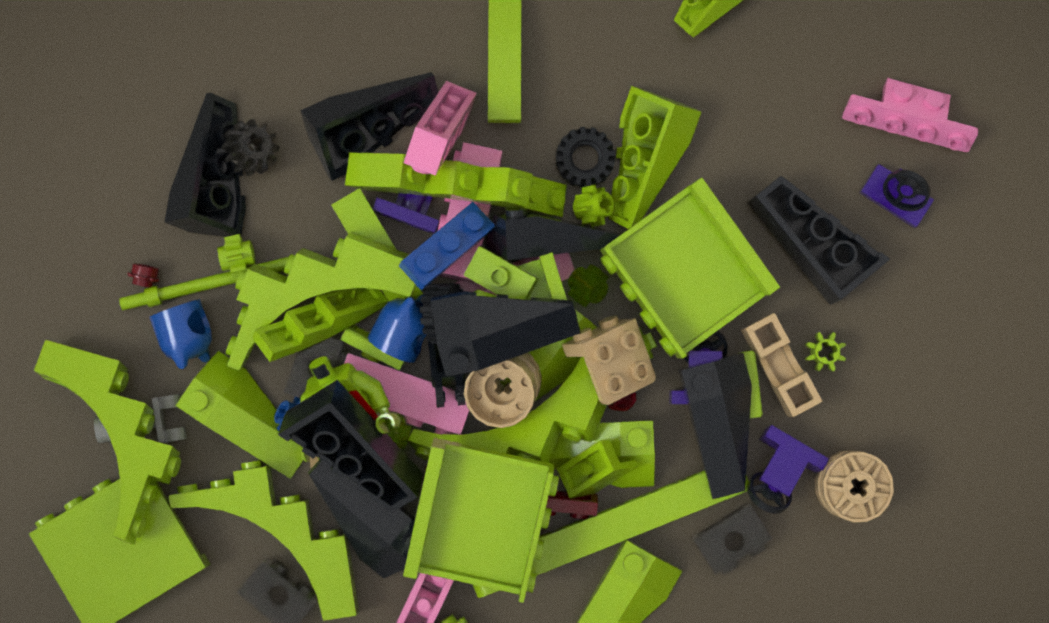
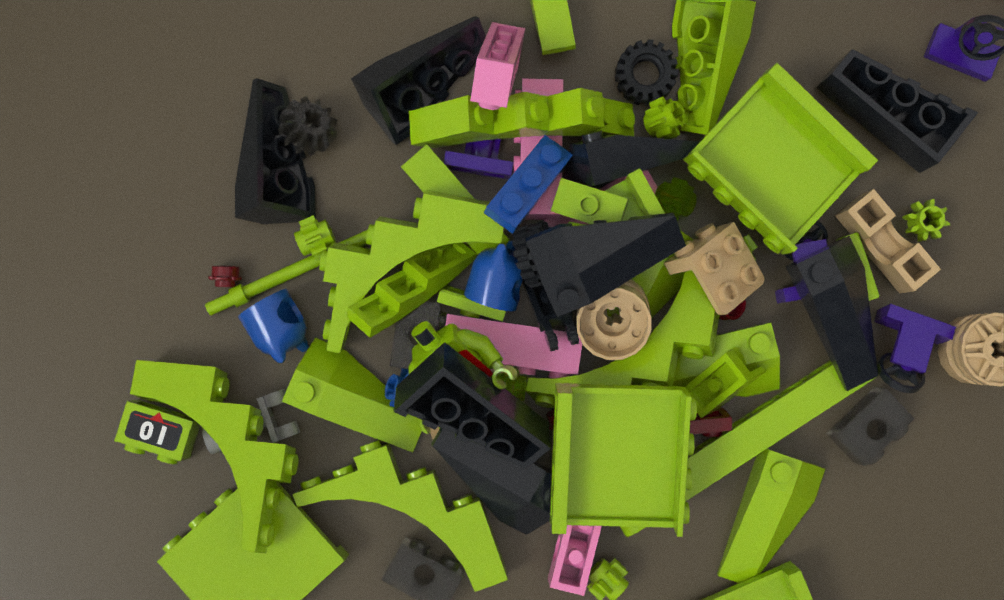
camera: 10 degrees left, 0 degrees up
(52, 411) = (157, 431): none -> brick

